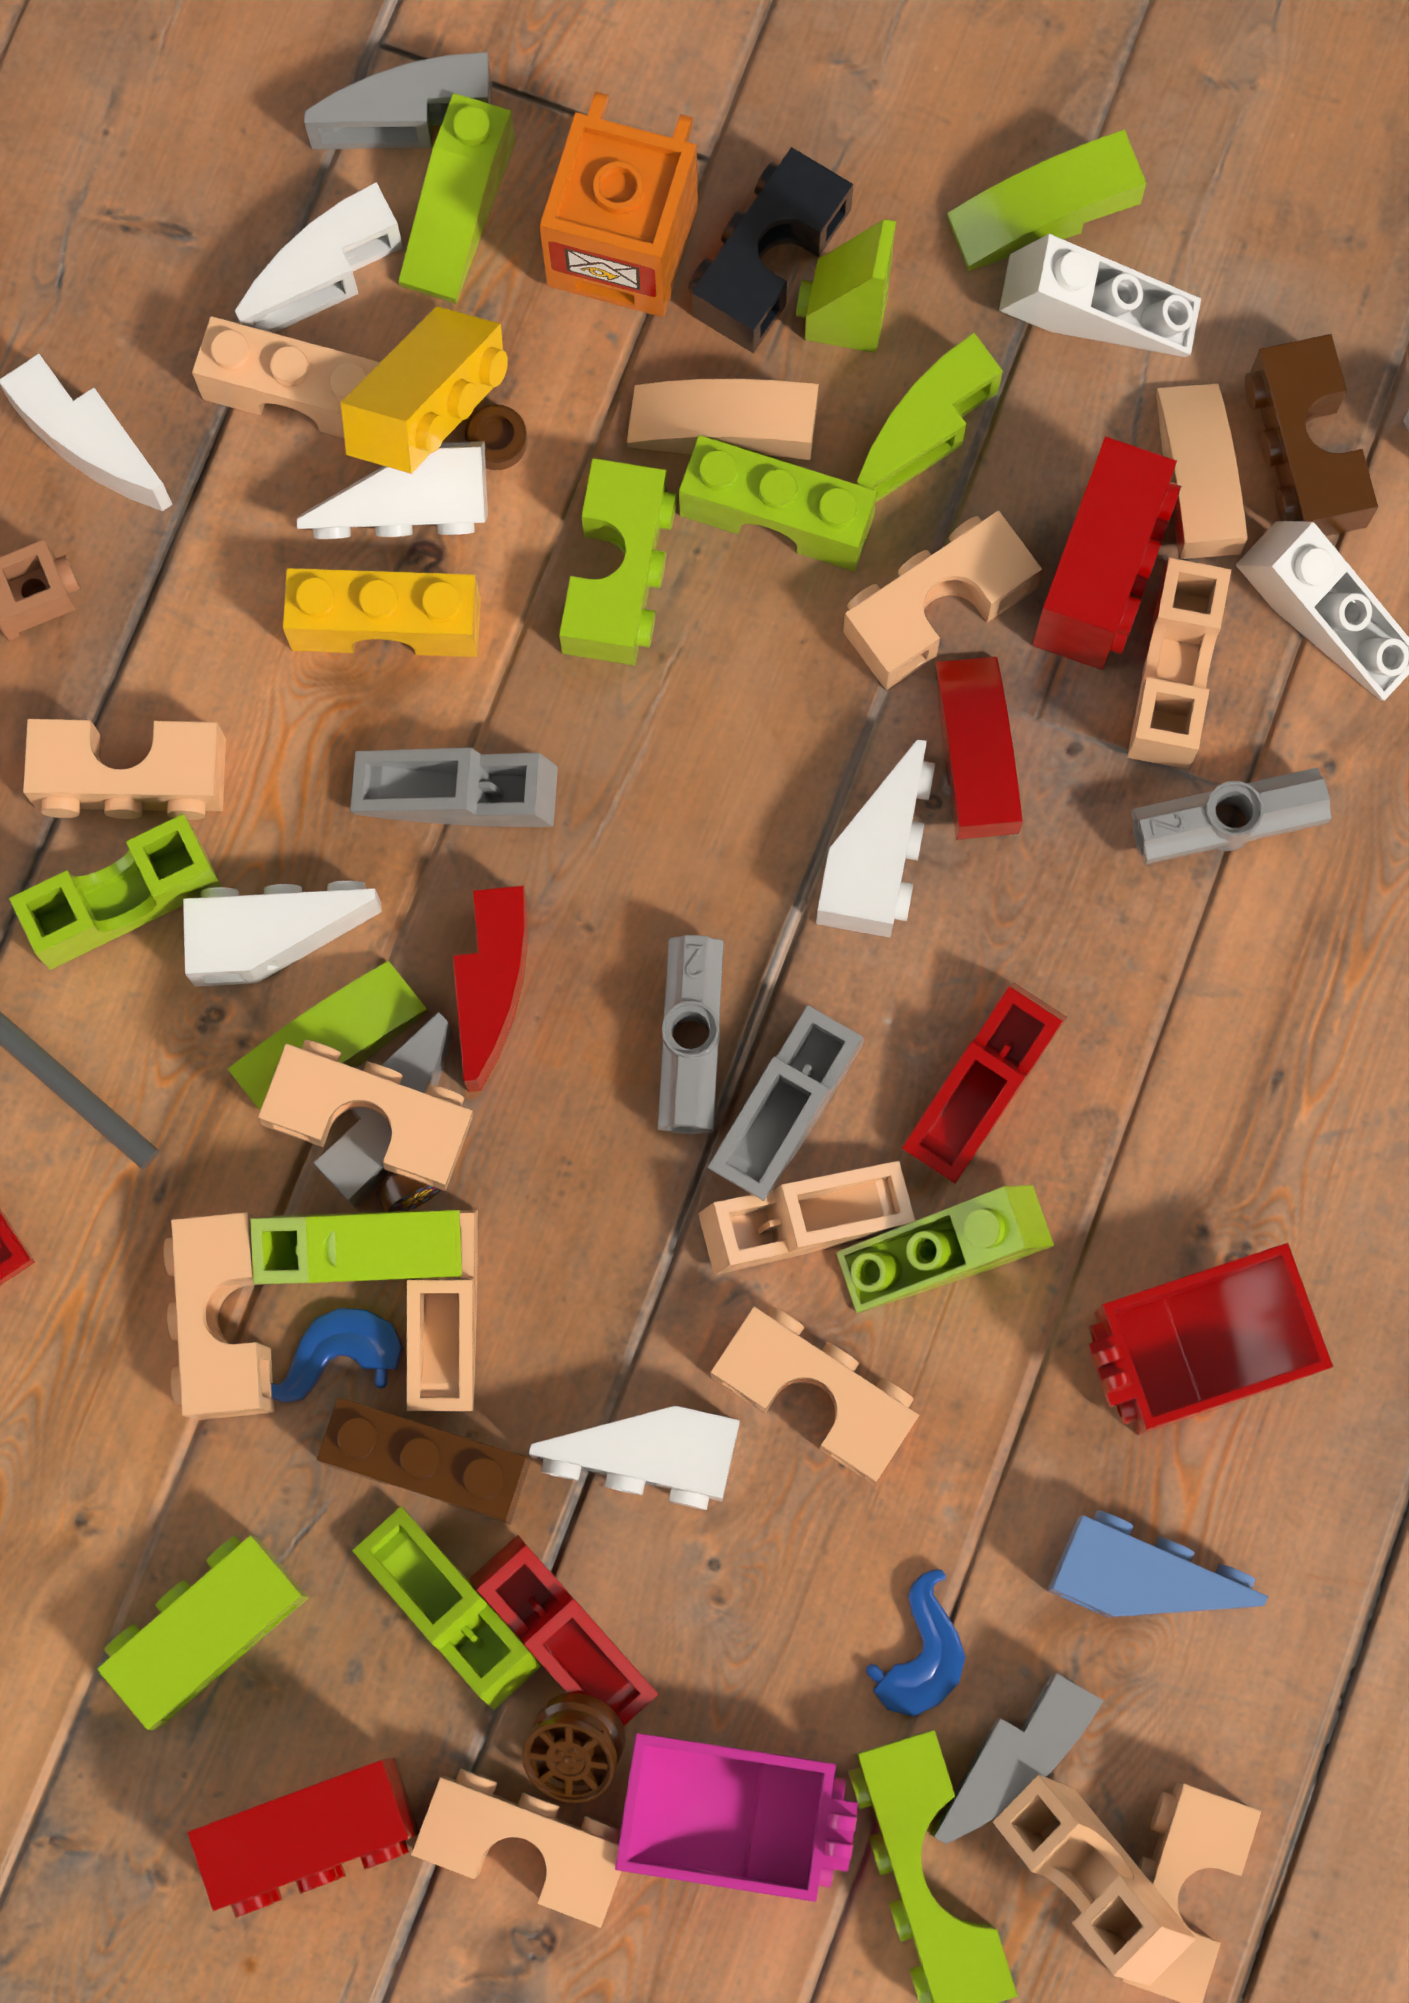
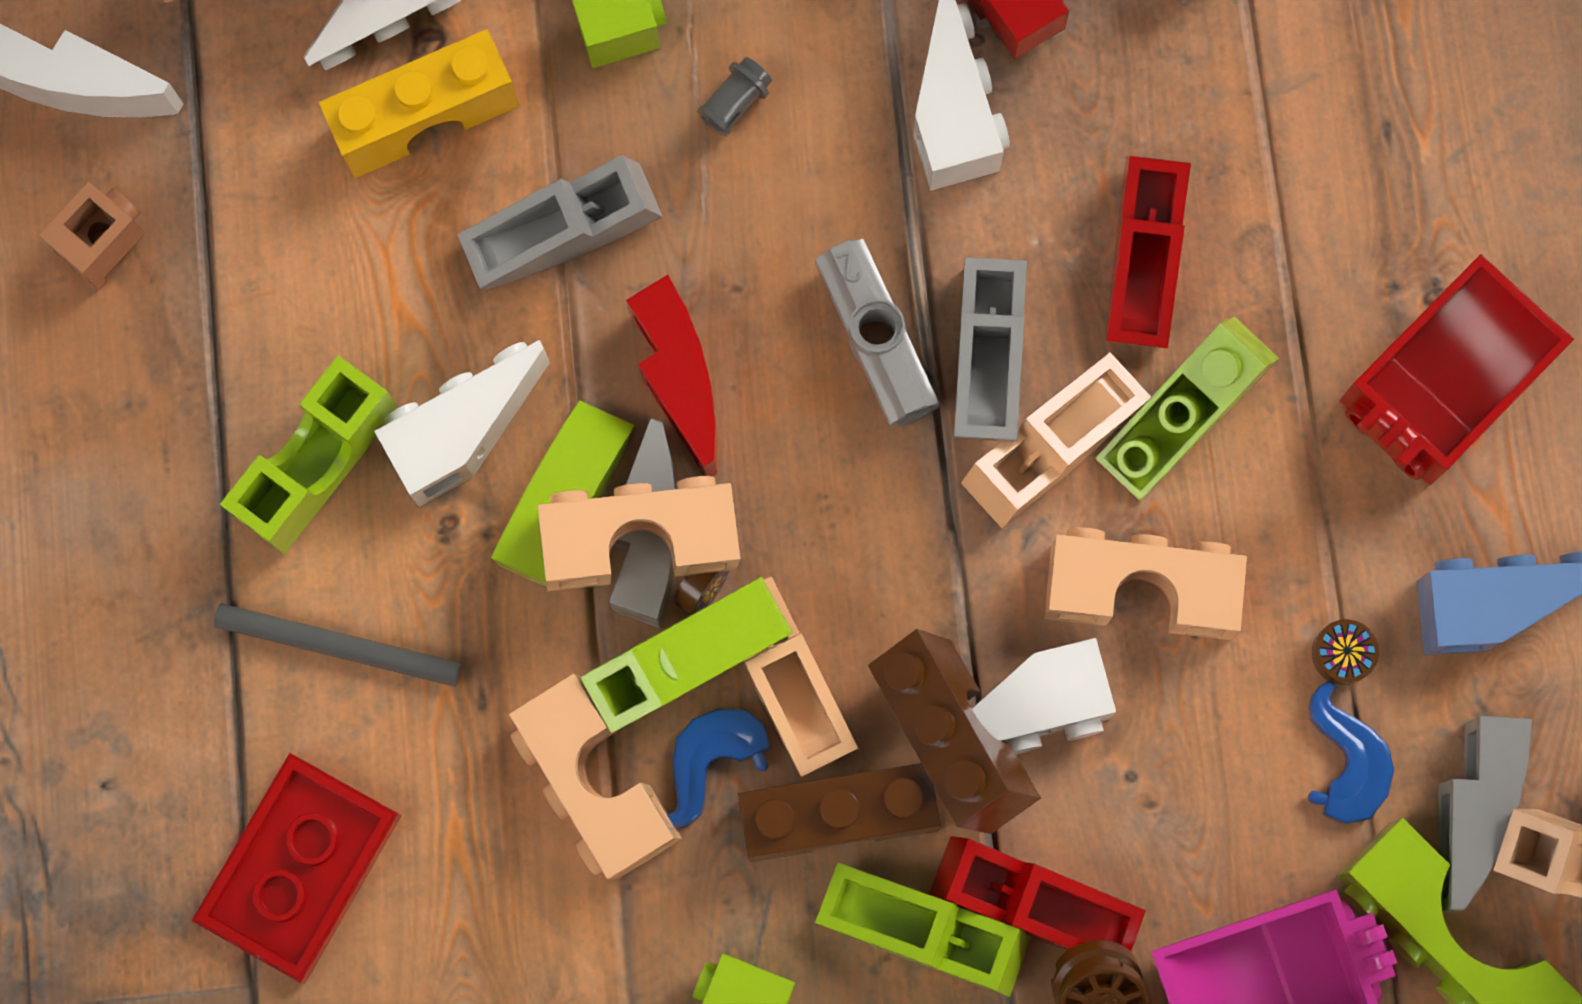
camera: 25 degrees left, 0 degrees up
(177, 776) = (309, 334): light nougat arch -> none
(557, 1488) = (969, 767): none -> reddish brown arch
(678, 746) = (735, 95): none -> dark grey pin
(971, 1550) = (1345, 652): none -> tile

